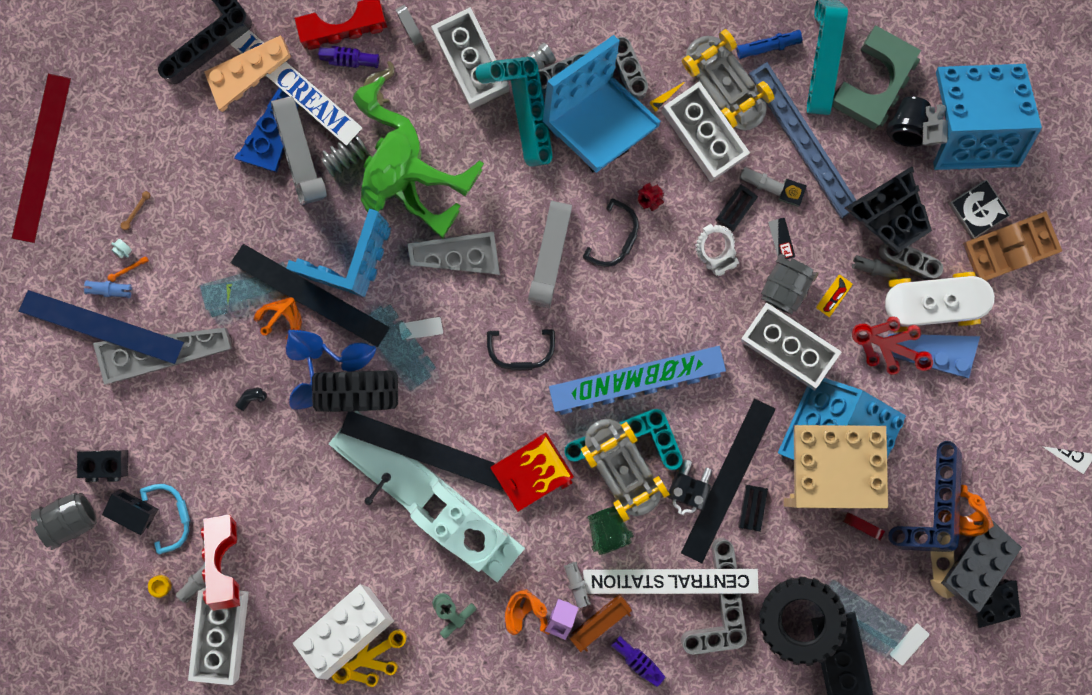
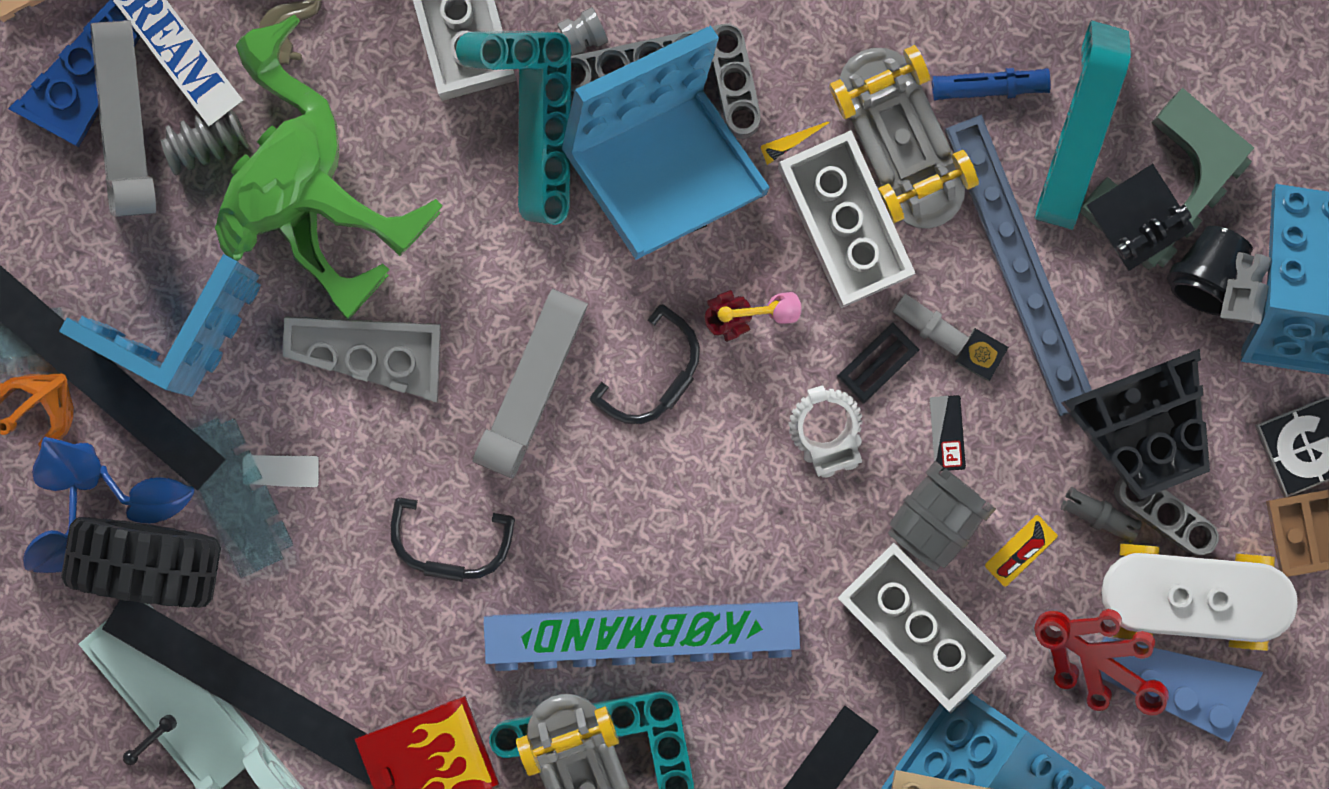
camera: 10 degrees right, 0 degrees up
(679, 187) = (782, 308): none -> hinge
(867, 99) = (1141, 217): none -> black hinge

